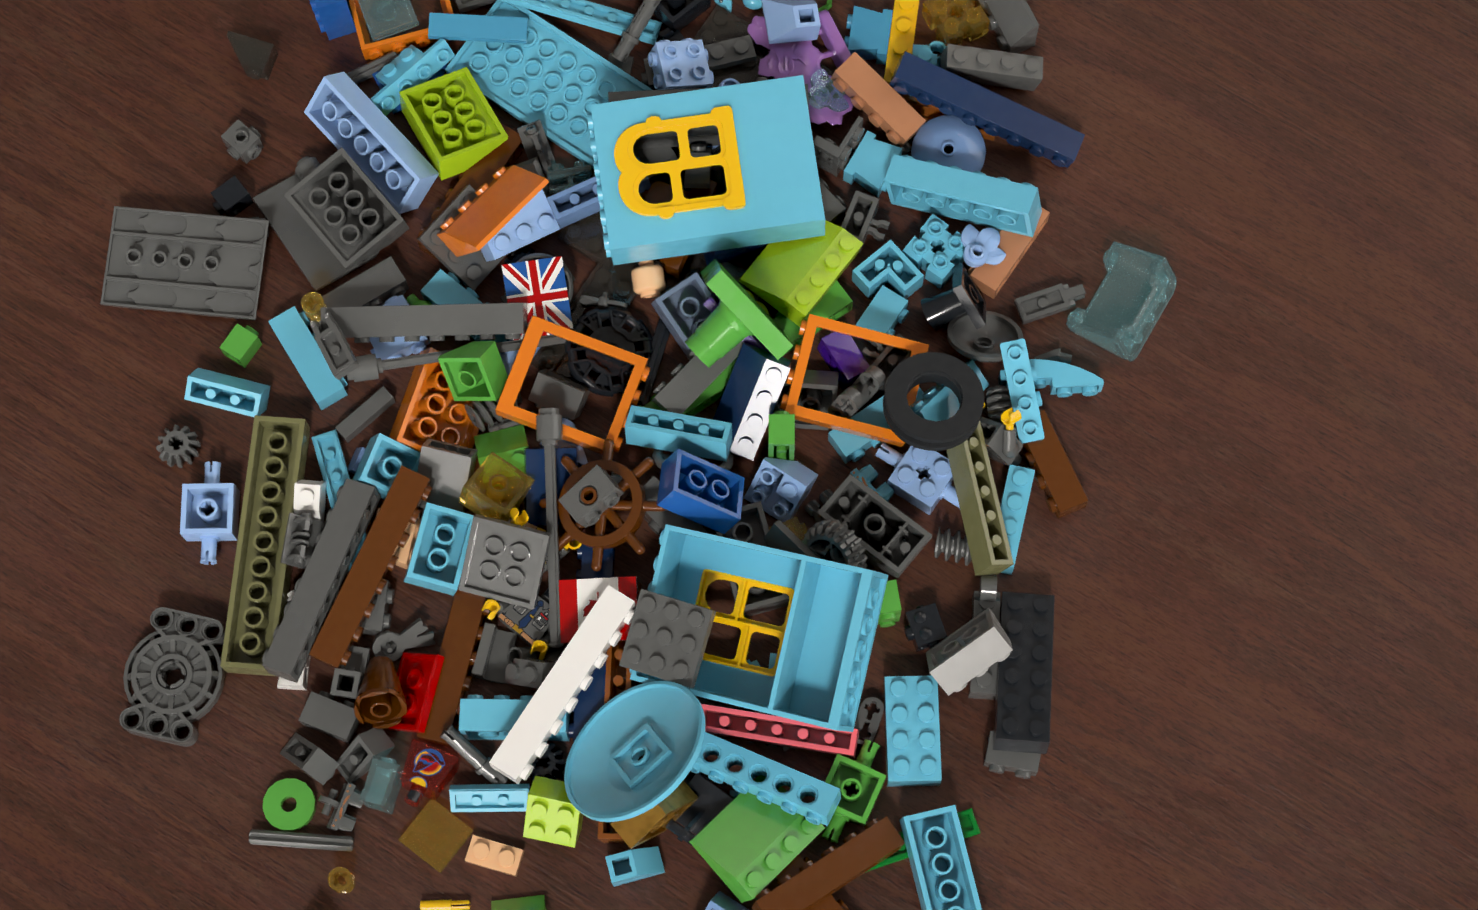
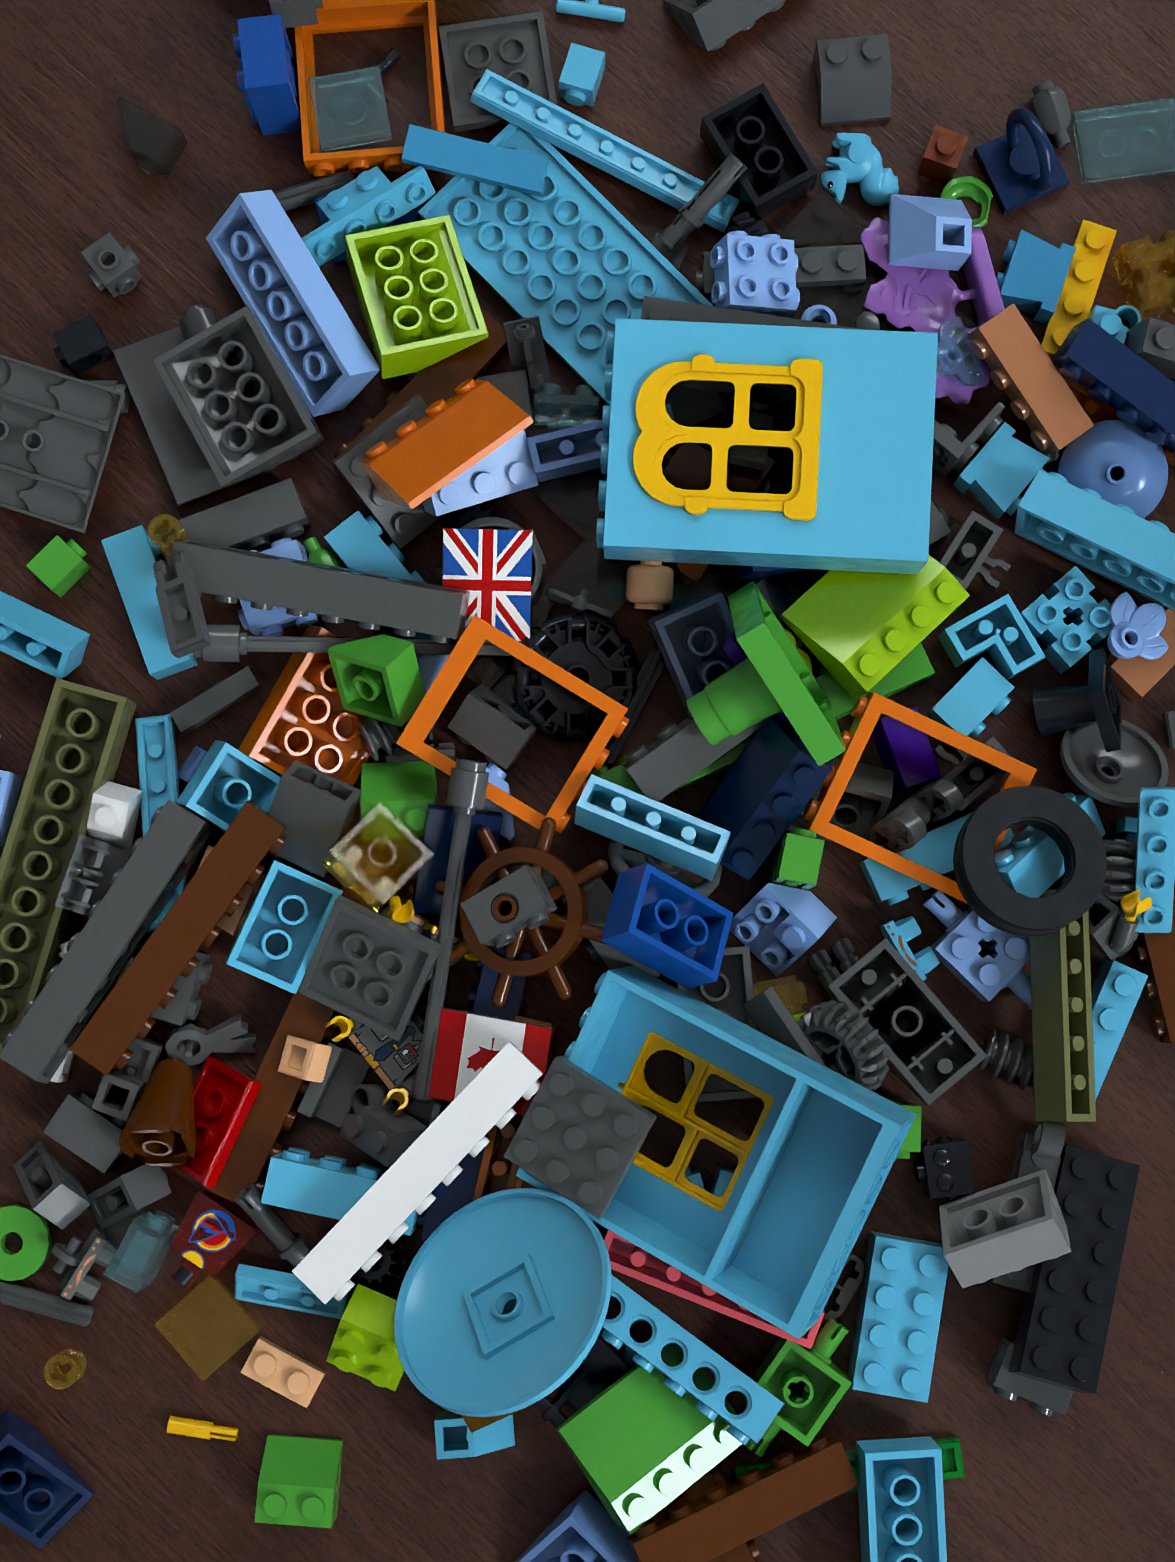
camera: 10 degrees right, 10 degrees up
(471, 635) = (304, 1059): none -> light nougat slope

